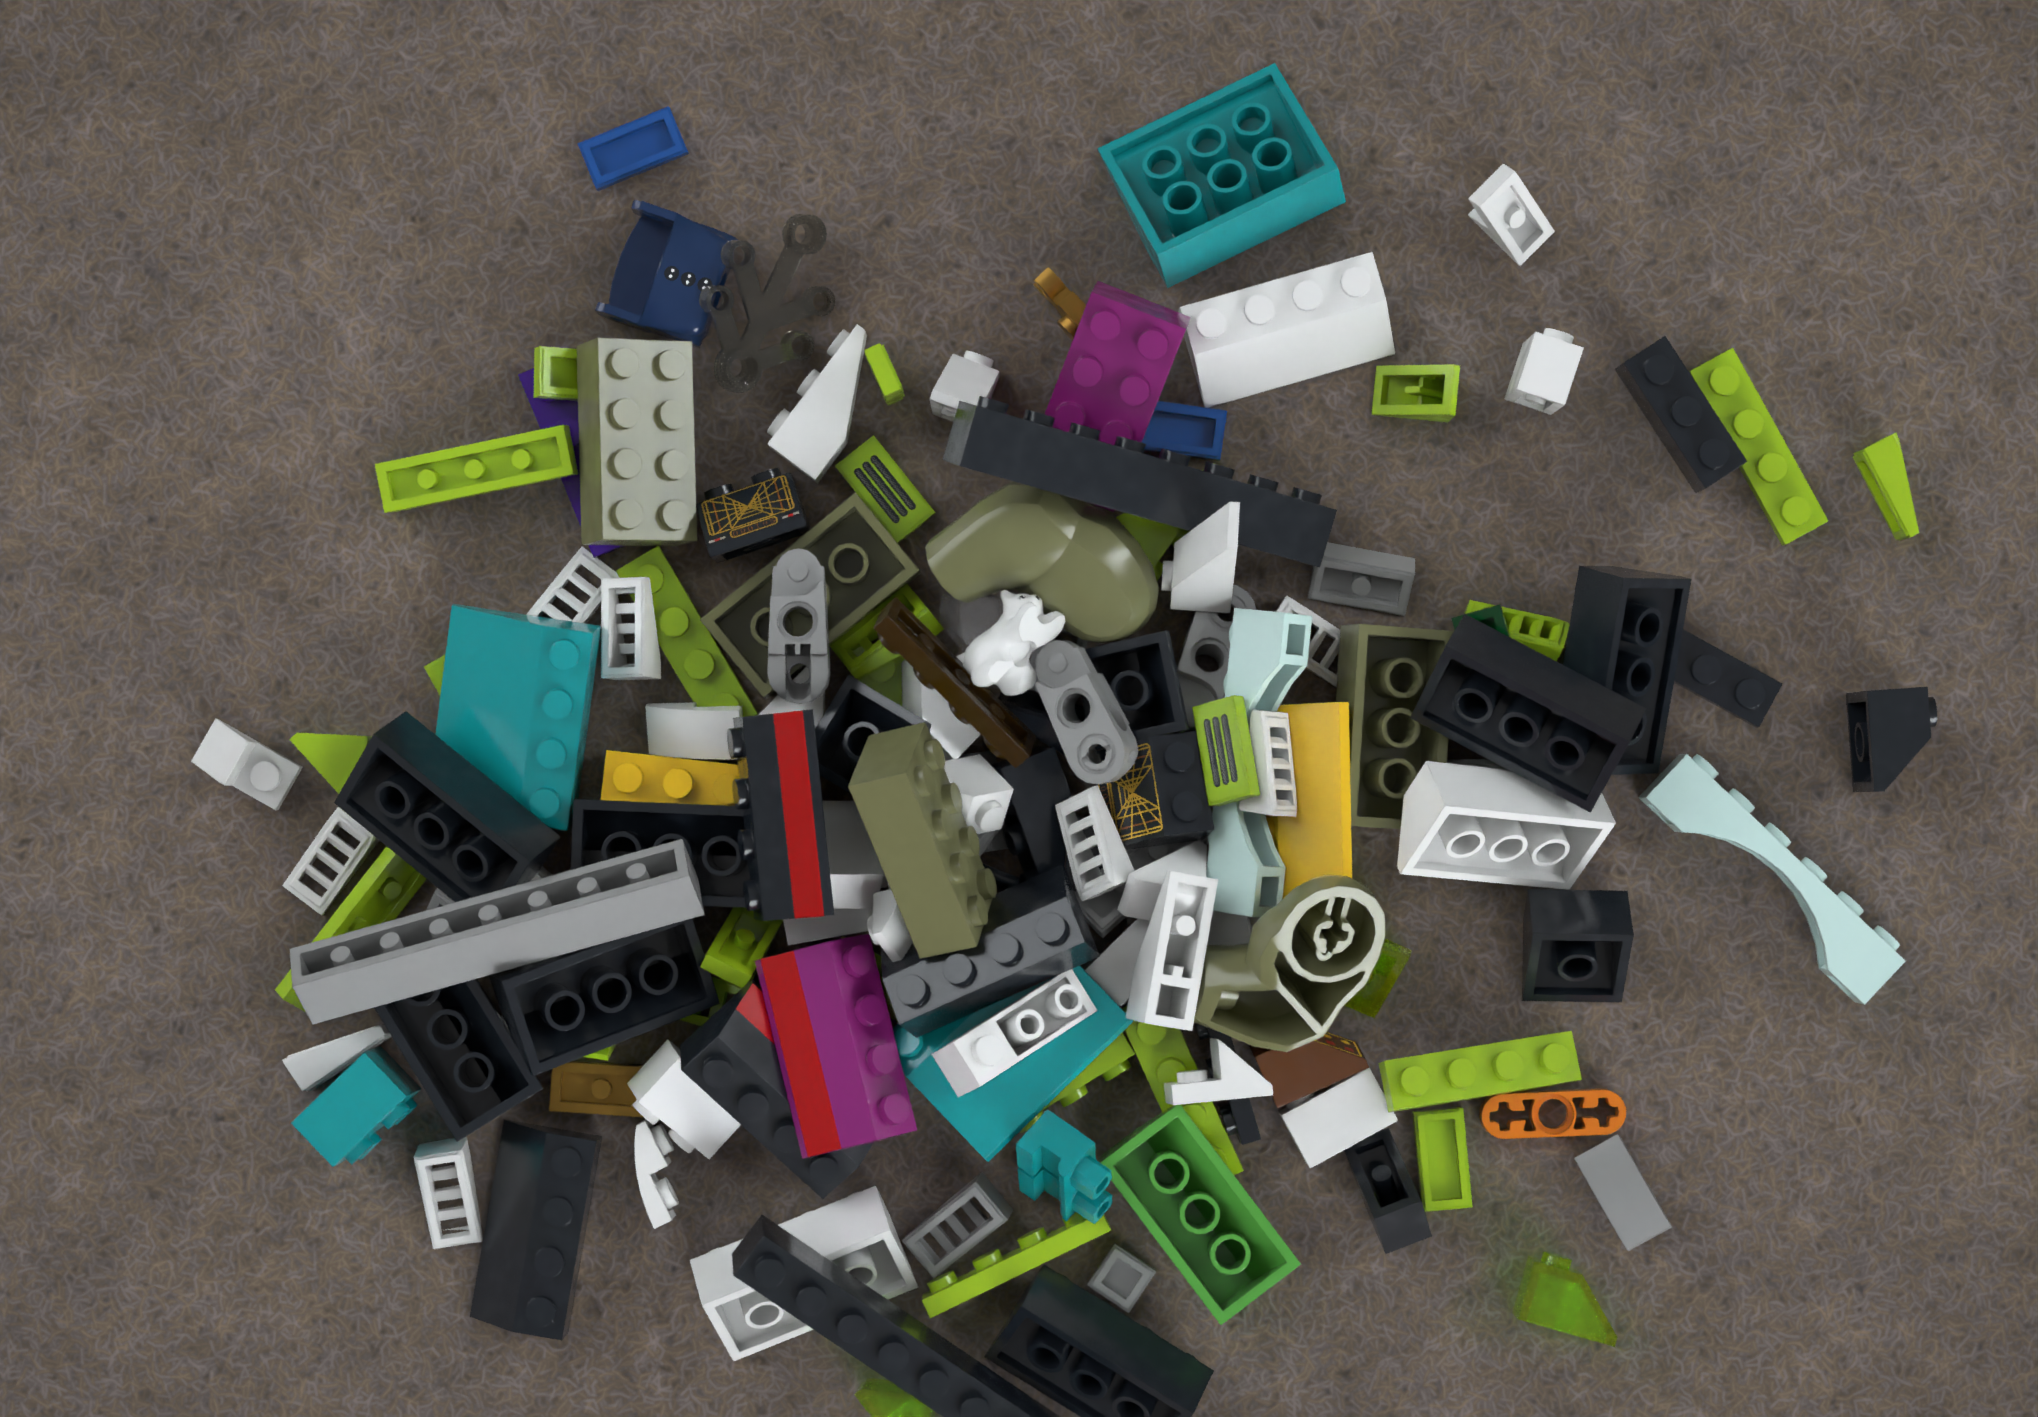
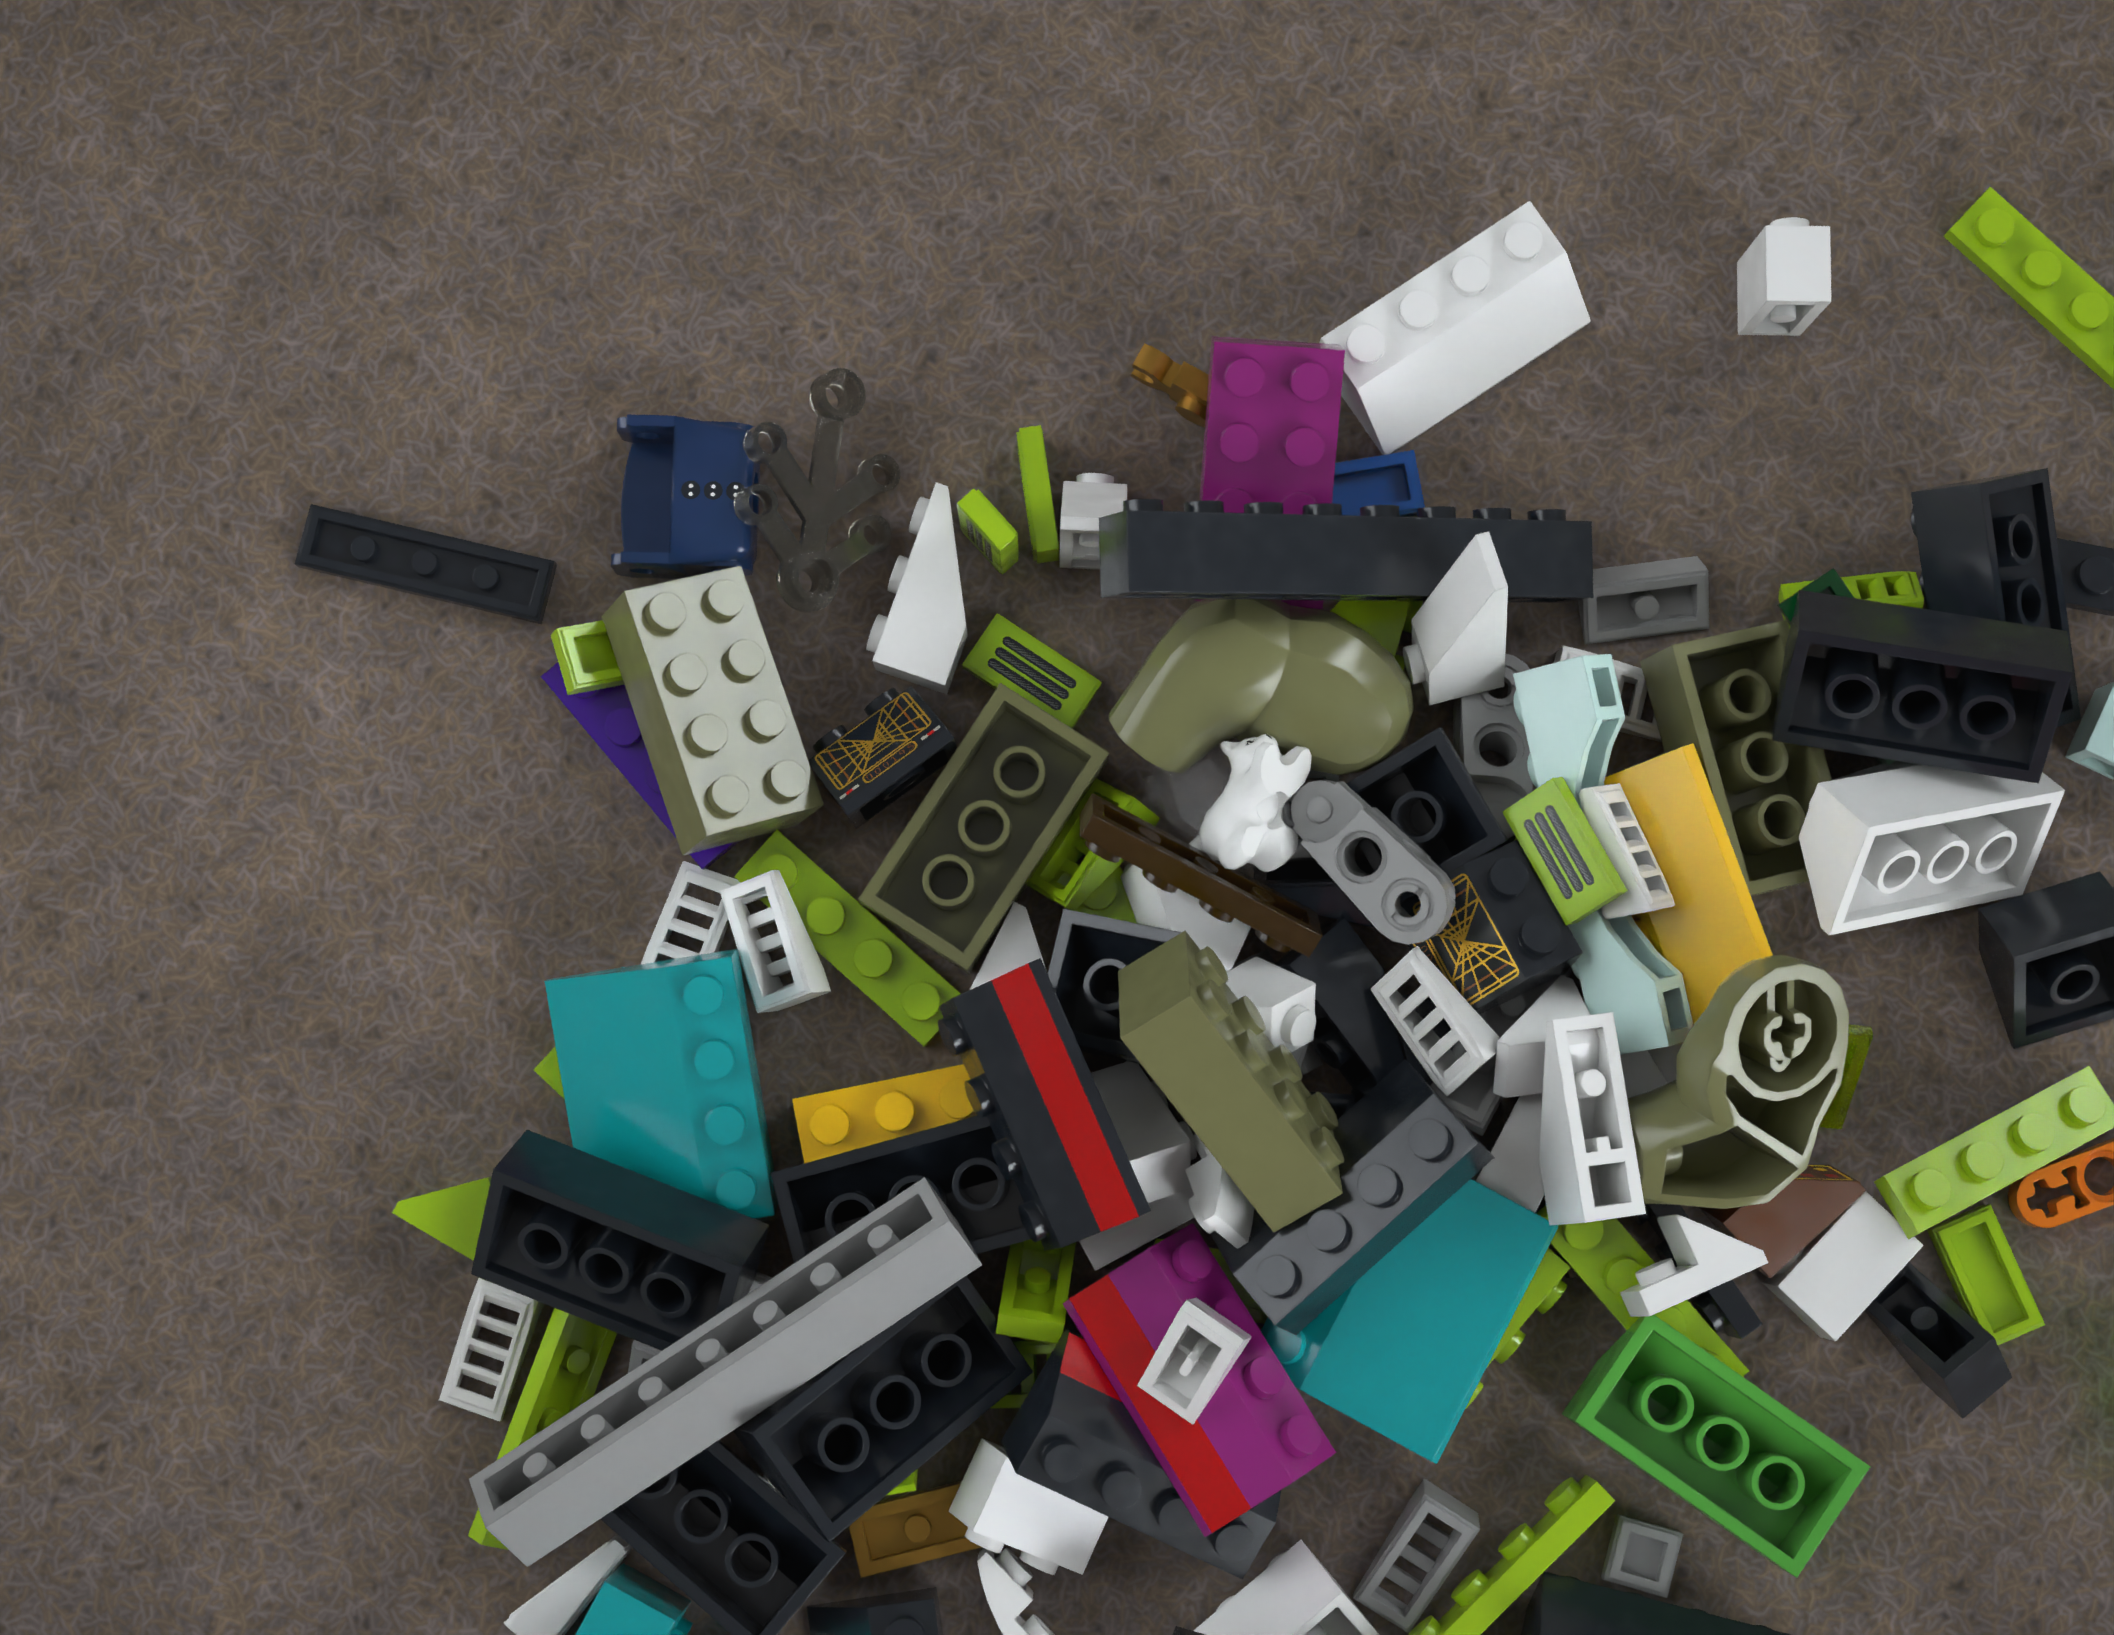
camera: 15 degrees left, 5 degrees down
(246, 764) = (349, 1262): white slope -> none
(458, 260) = (426, 564): none -> black tile
(476, 469) = (524, 805): lime plate -> none
(633, 148) = (597, 364): blue tile -> none
(689, 730) = (889, 1042): white slope -> none
(797, 584) = (968, 816): light grey piece -> none
(834, 1029) = (1193, 1359): none -> white slope
(932, 353) = (1037, 494): none -> lime tile
(1014, 1033) = (1418, 1291): white slope -> none
(1064, 1164) = (1533, 1438): teal hips -> none
(1223, 175) = (1317, 174): teal slope -> none
(1416, 391) = (1637, 353): lime slope -> none
(1510, 215) = (1673, 112): white slope -> none
(1680, 415) = (1960, 282): black brick -> none

